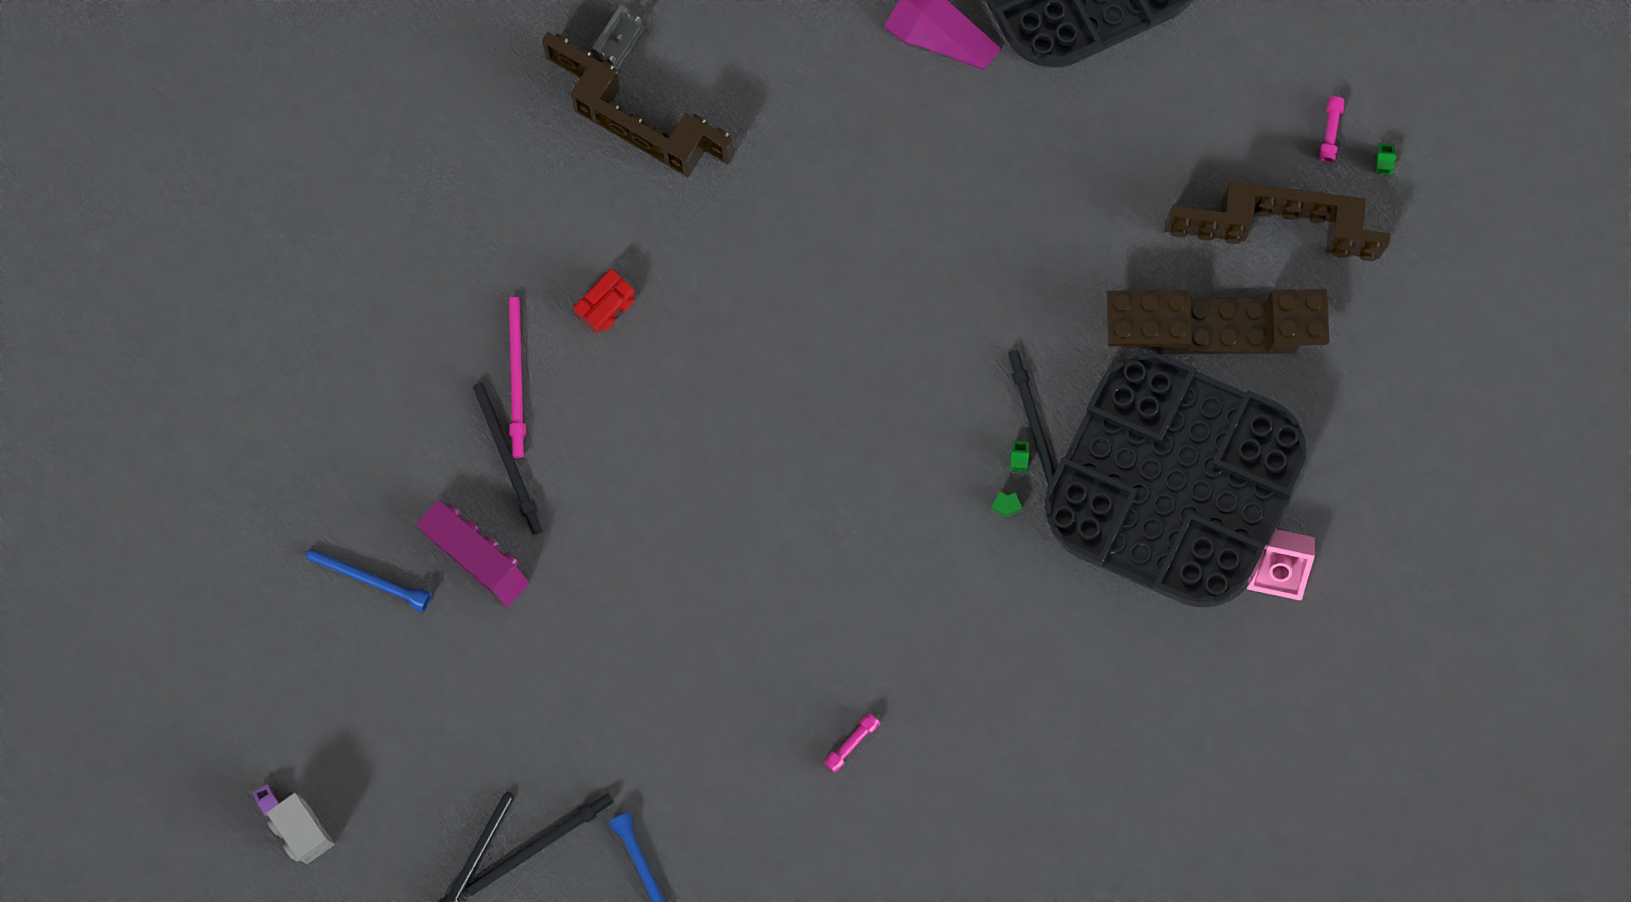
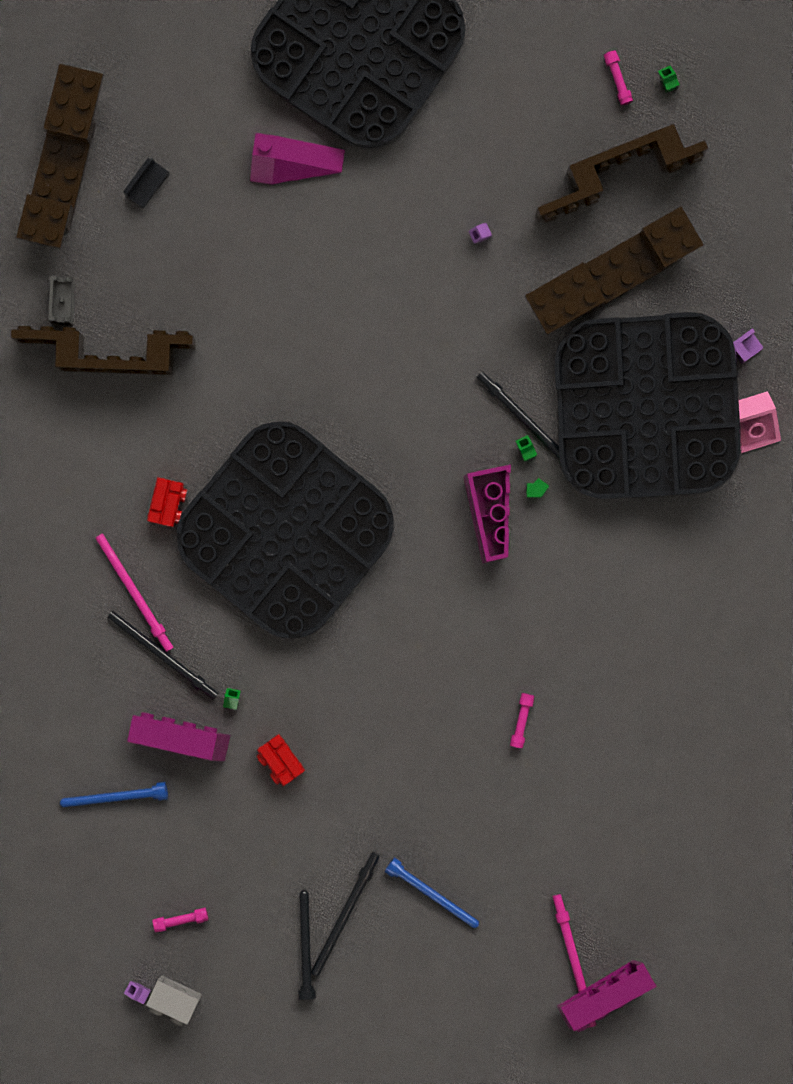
camera: 30 degrees left, 10 degrees up
(337, 742) = (161, 924): none -> dark pink bar
(552, 544) = (231, 699): none -> green piece
(566, 638) = (280, 760): none -> red brick
(713, 399) = (285, 530): none -> black plate
(946, 490) = (490, 510): none -> magenta wedge
(1096, 207) = (480, 233): none -> medium lavender piece
(1318, 479) = (747, 346): none -> medium lavender panel

